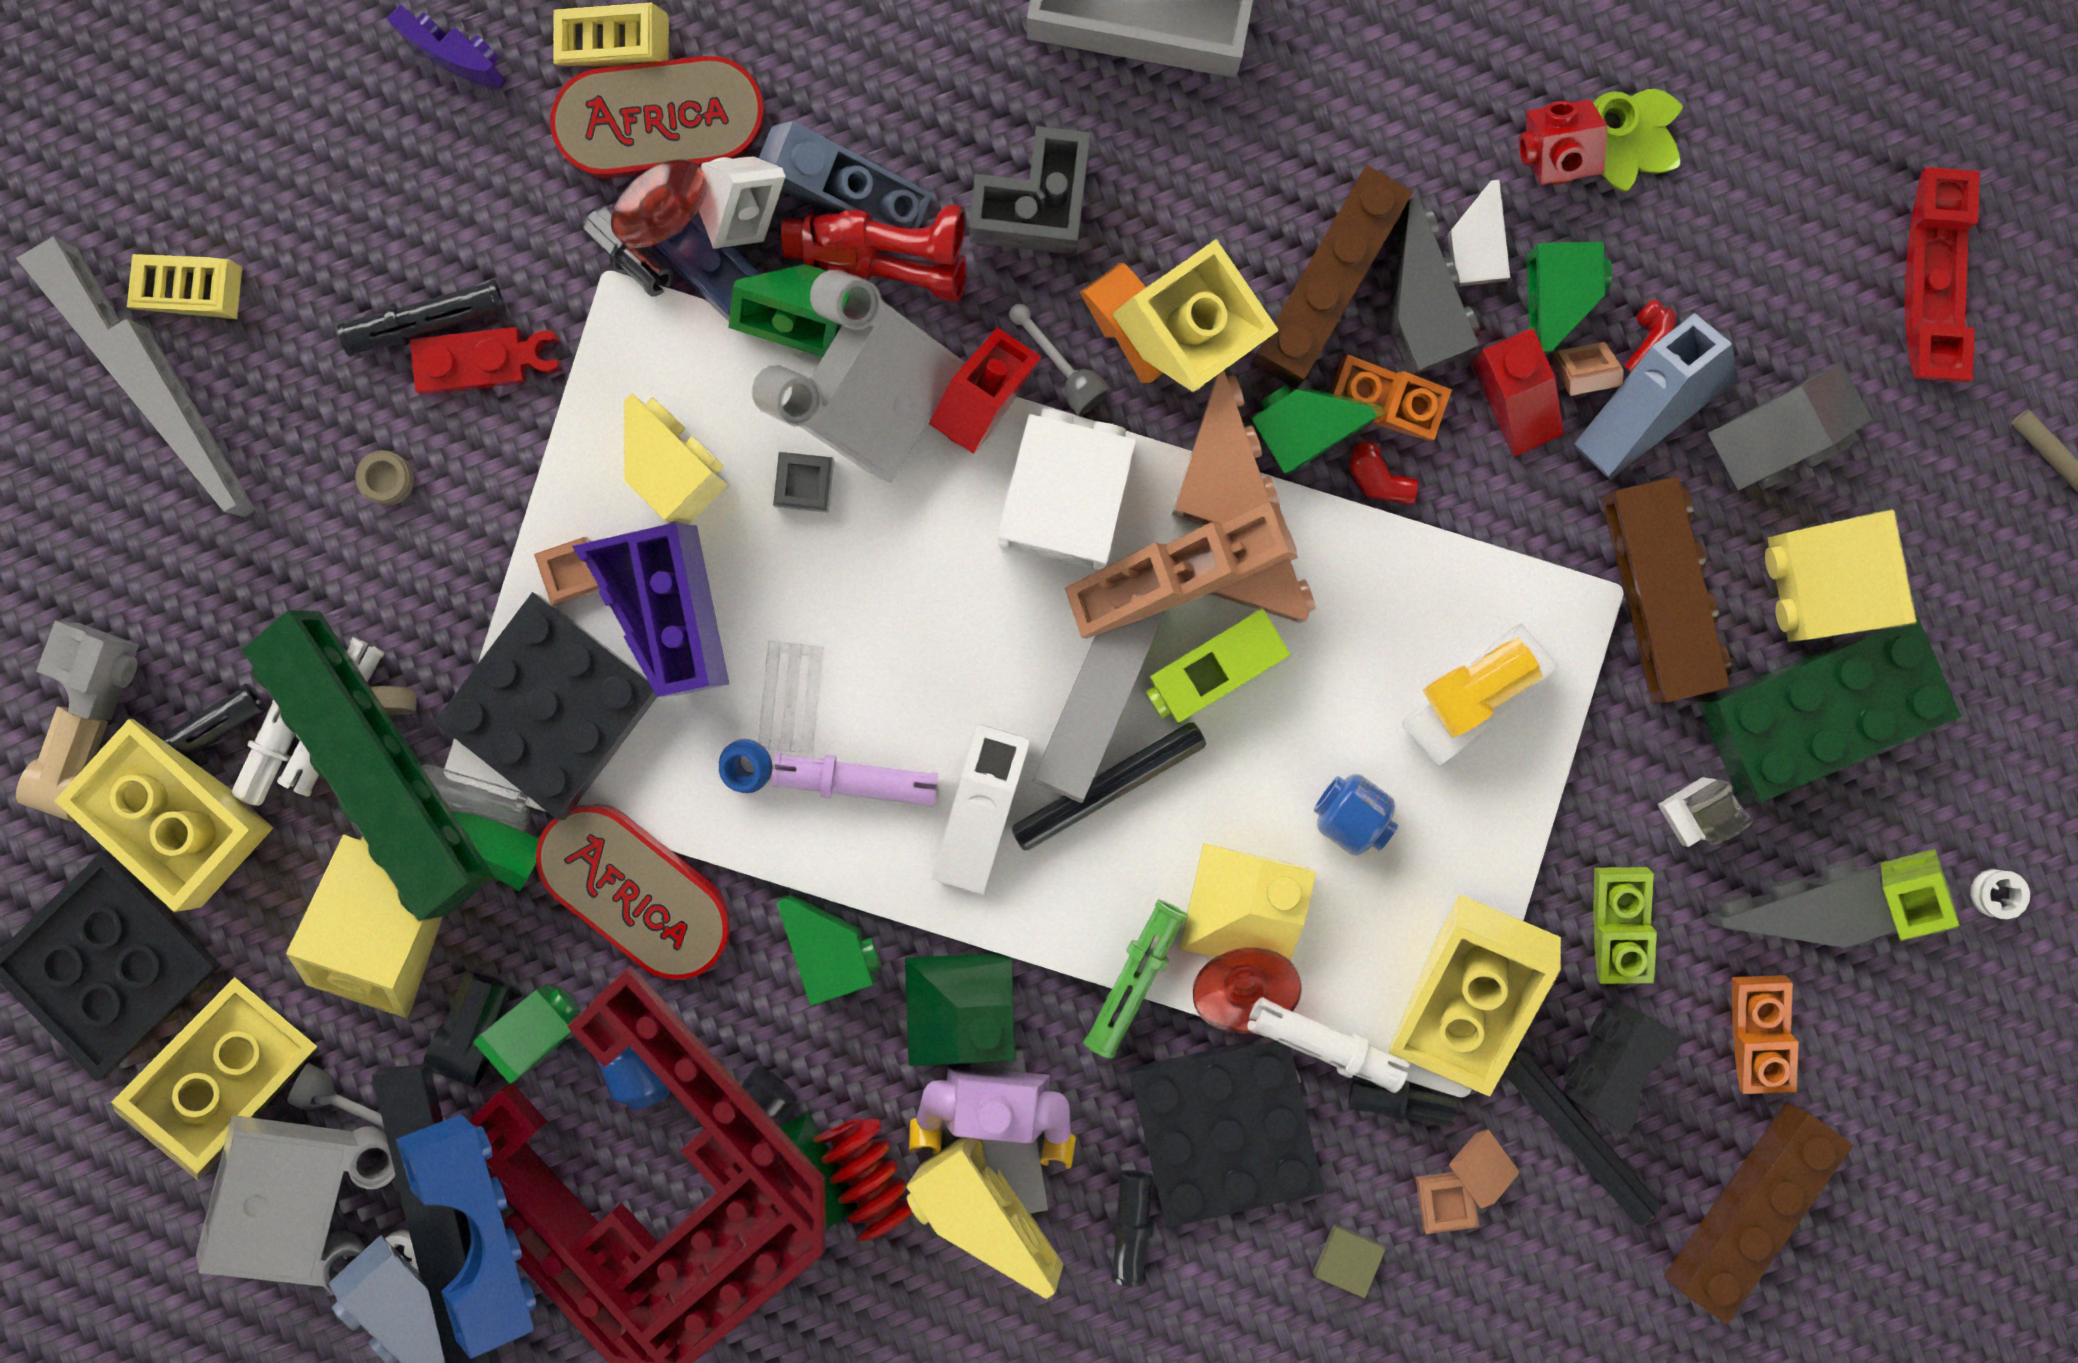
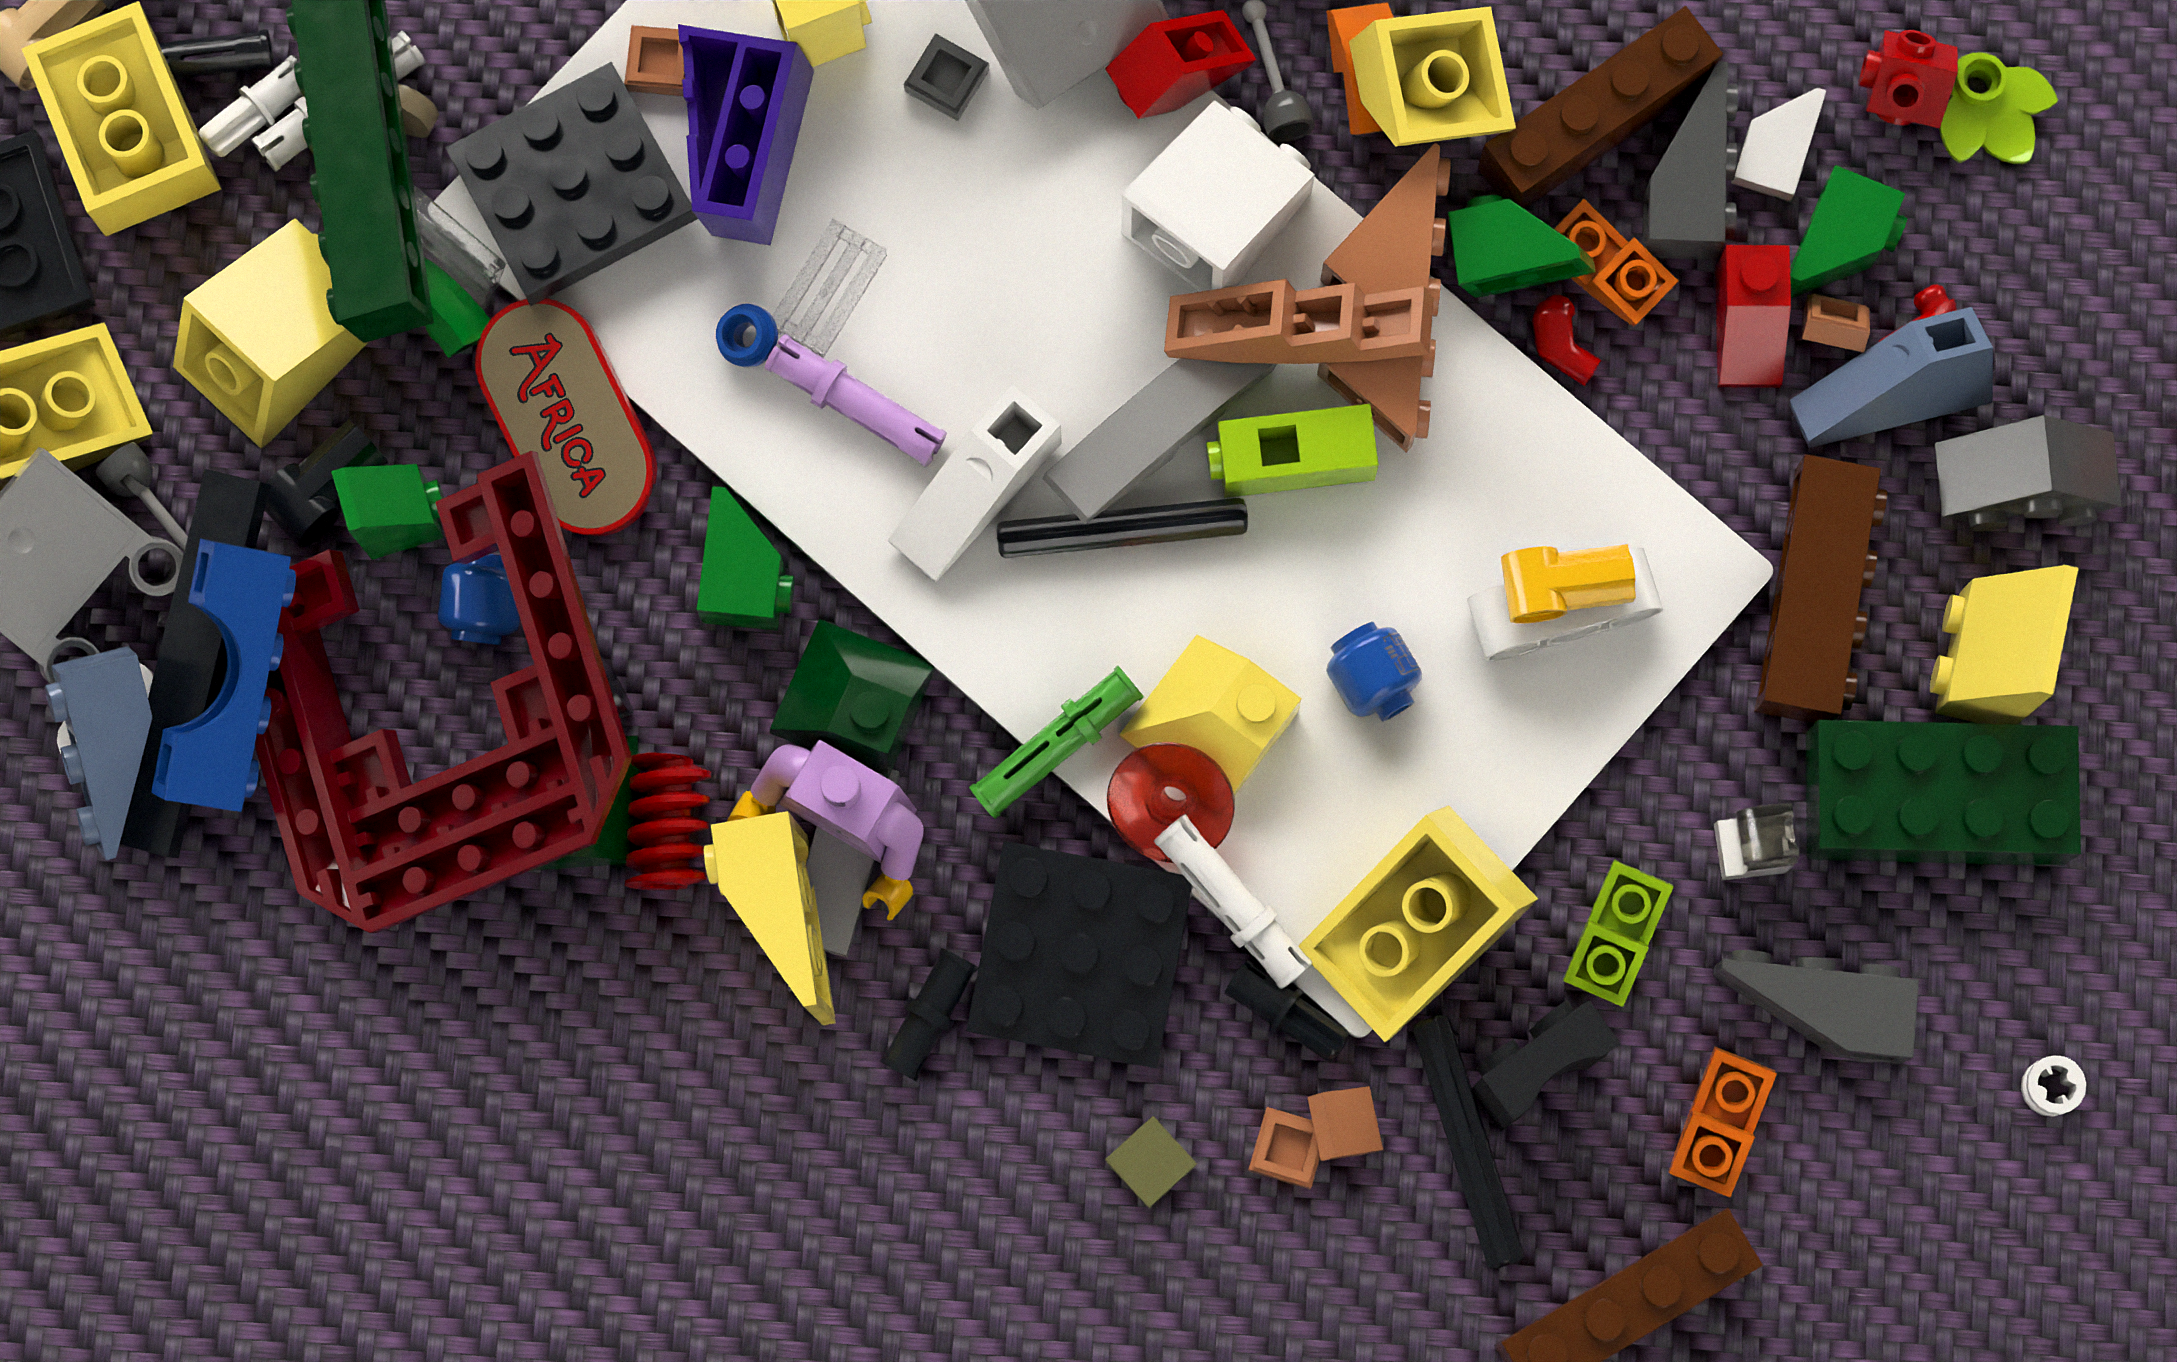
camera: 30 degrees right, 10 degrees down
(1918, 895) = (1950, 1019): lime brick -> none

